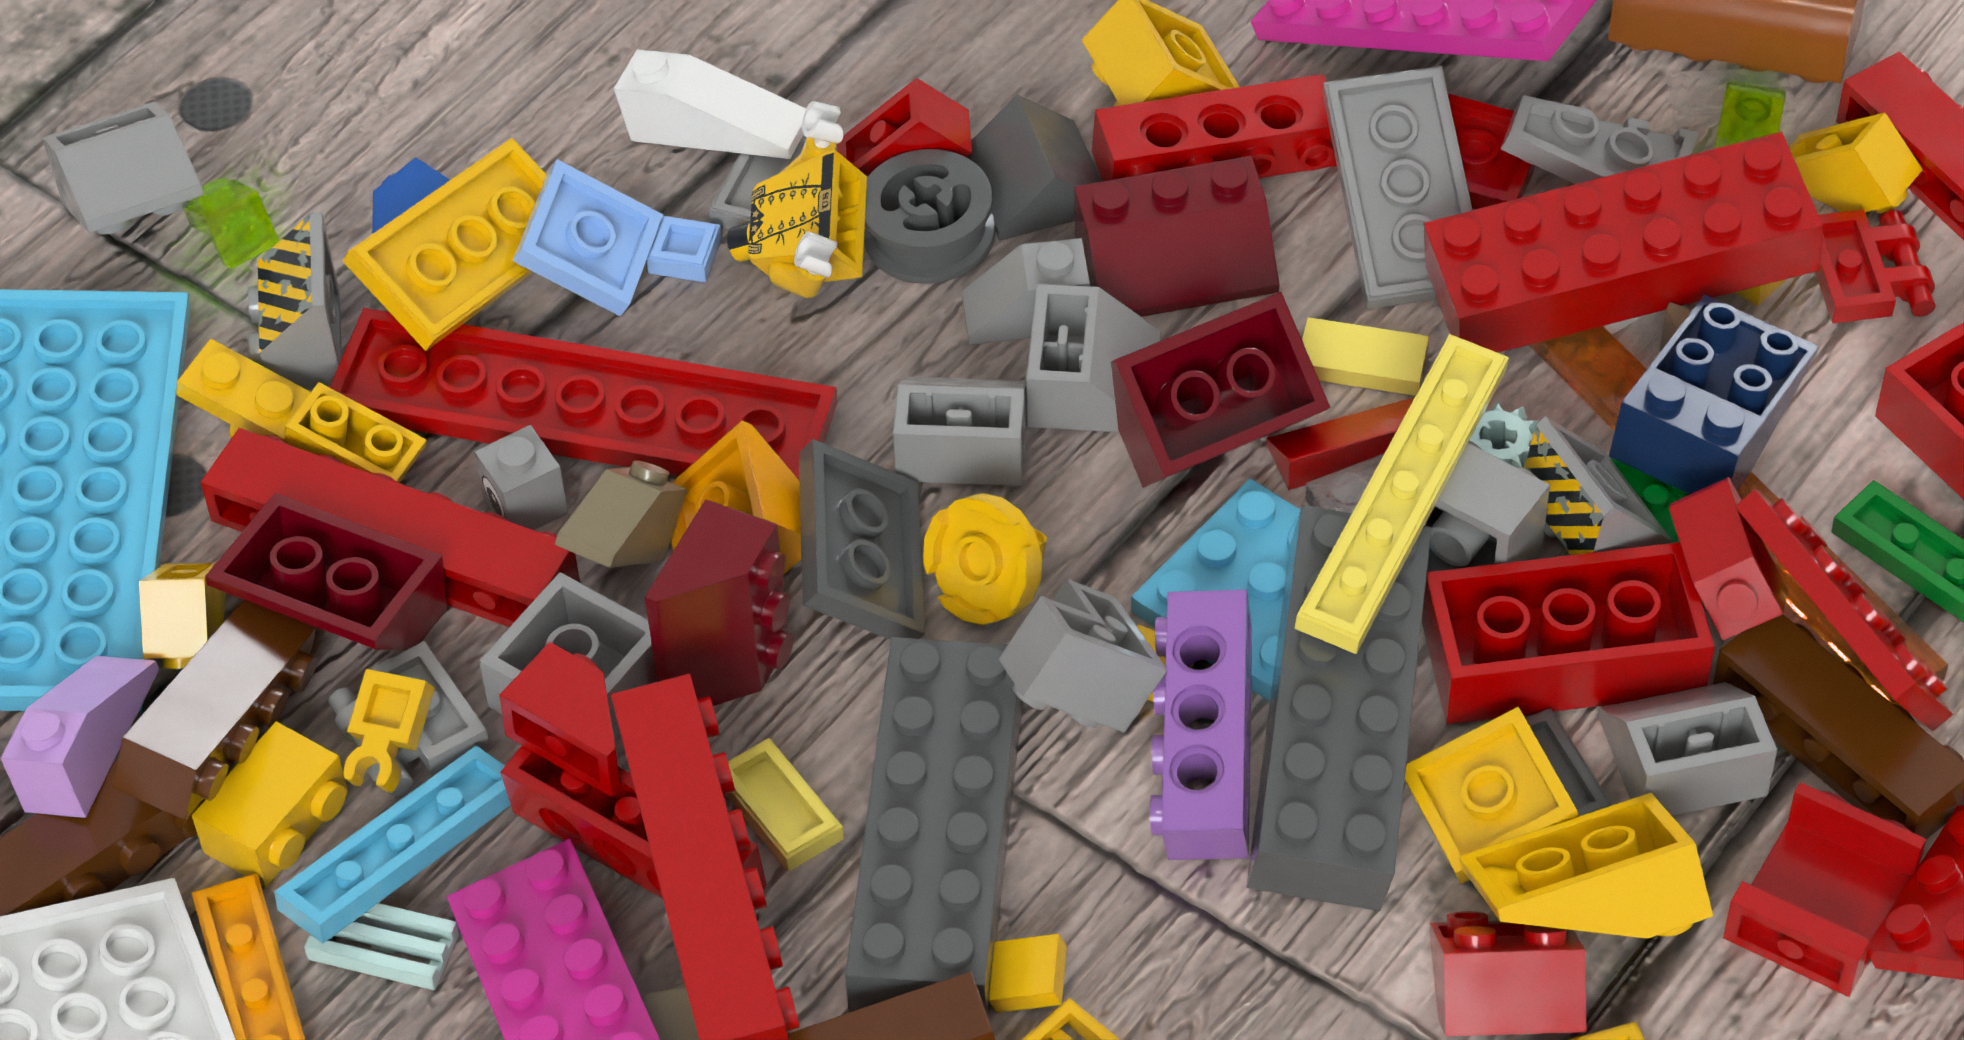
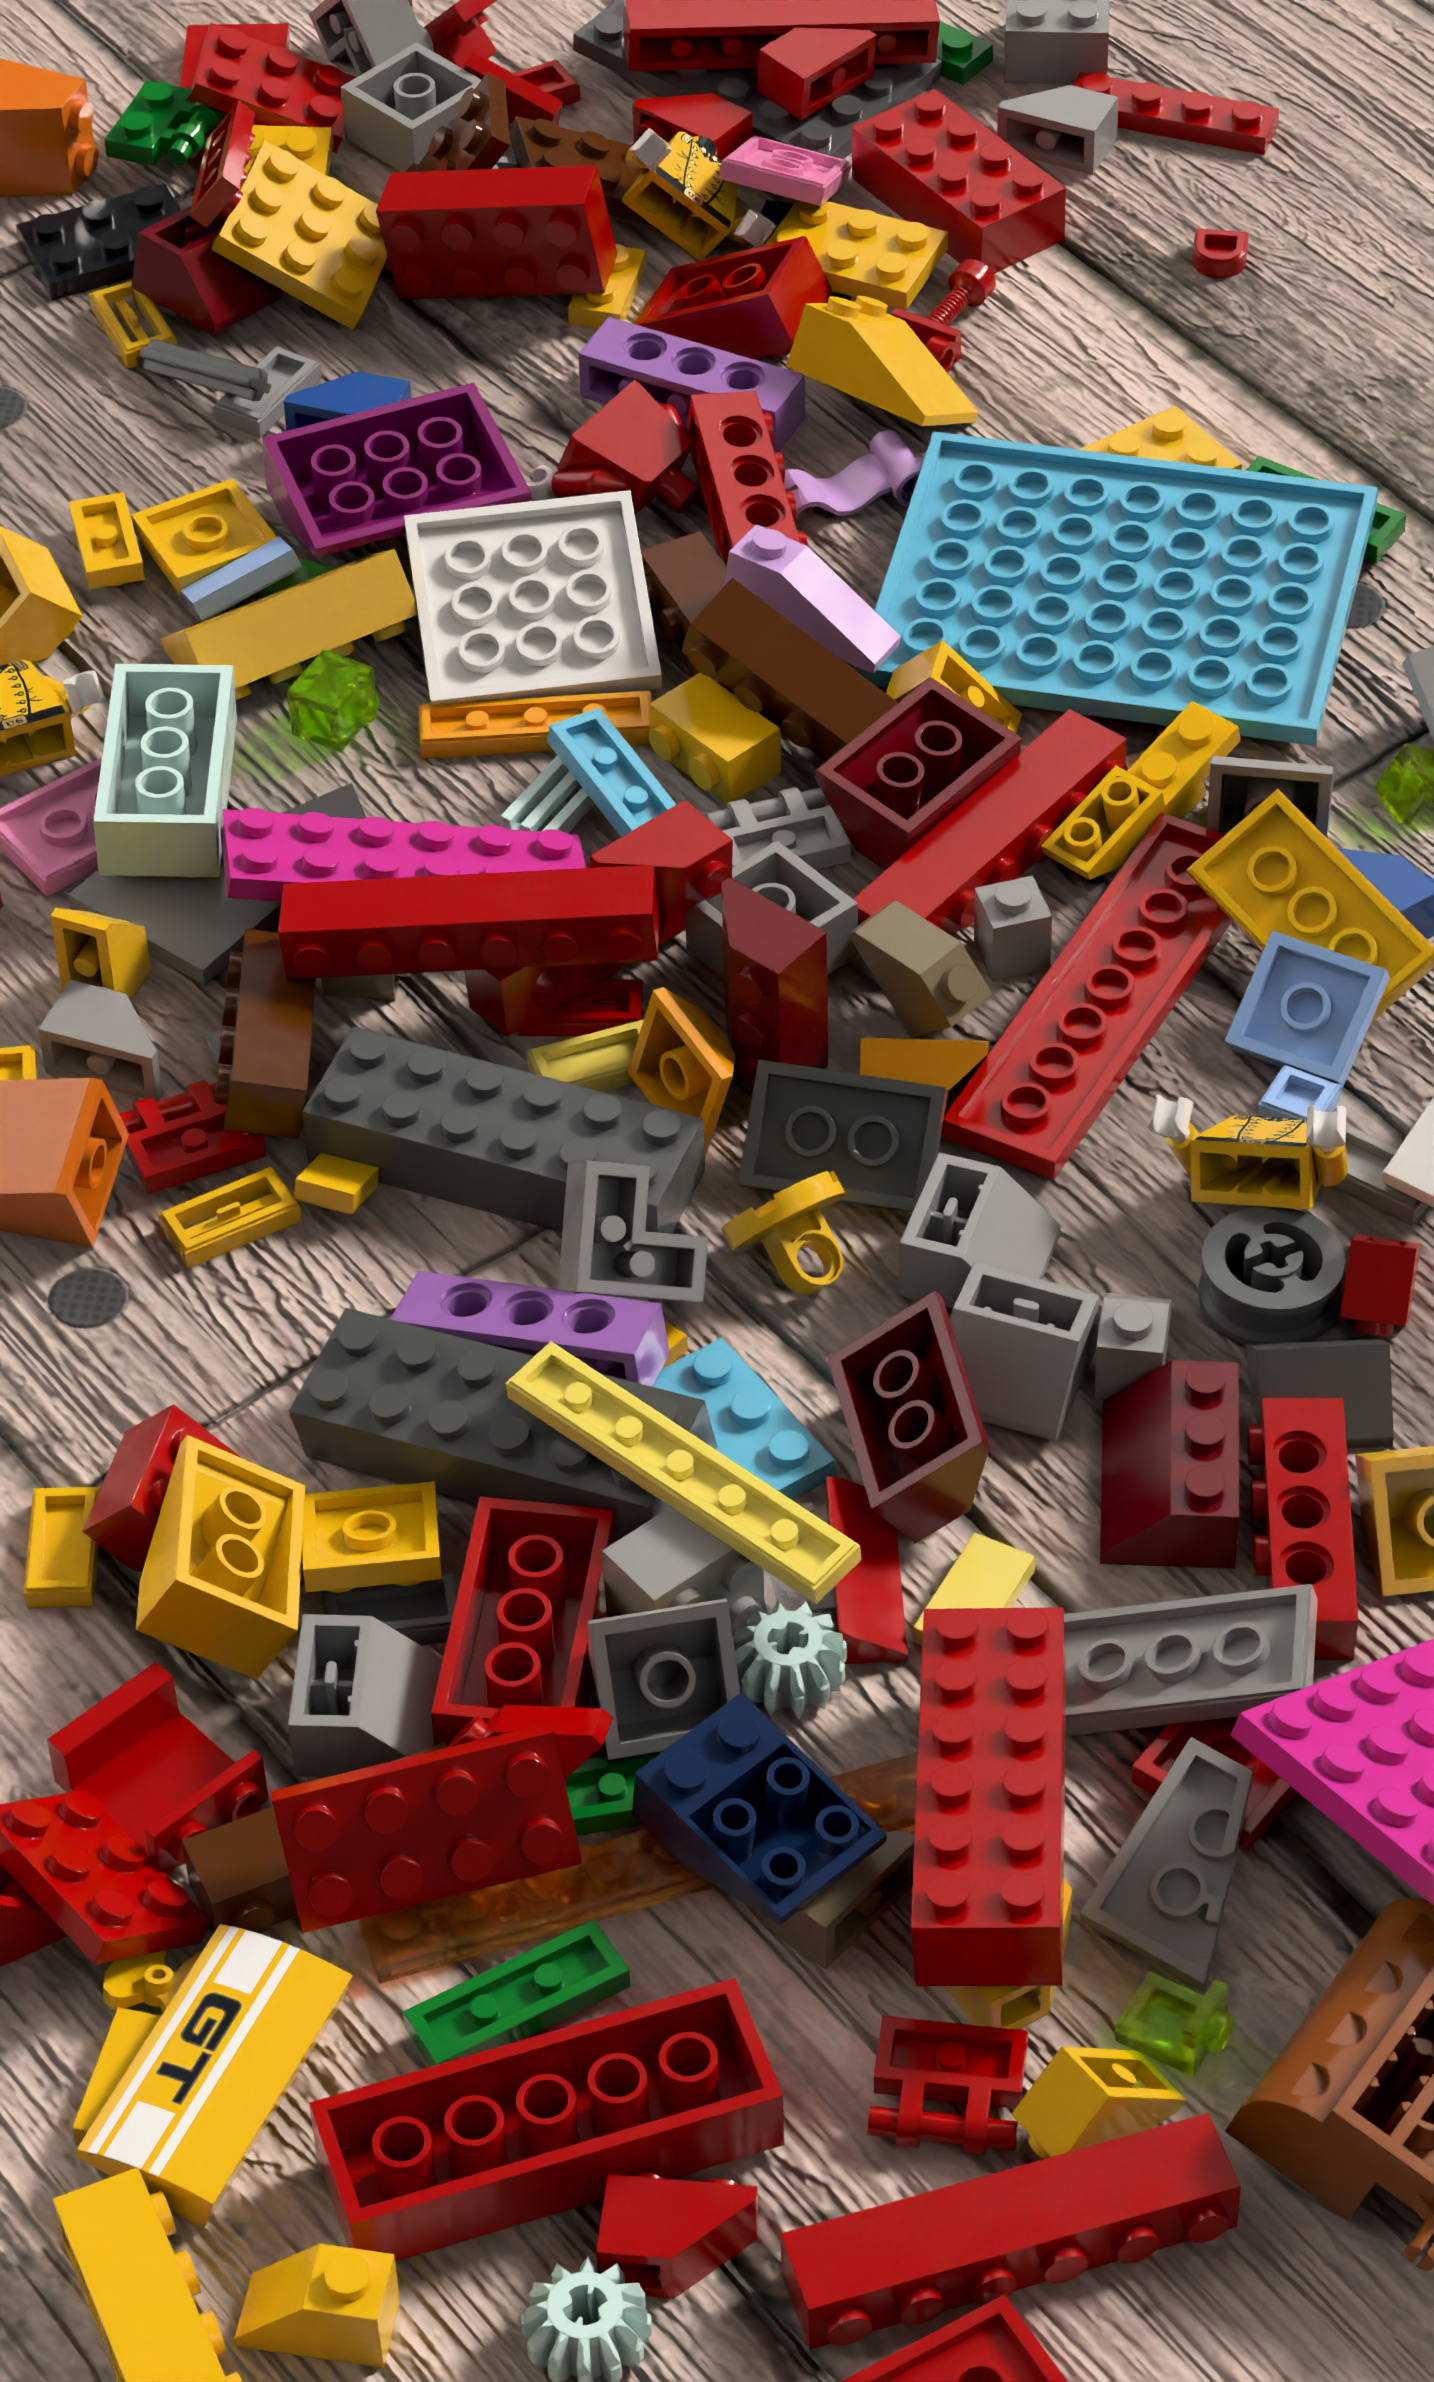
camera: 105 degrees right, 5 degrees down
(386, 717) = (753, 796): yellow plate -> none
(815, 679) = (682, 1060): none -> light orange slope

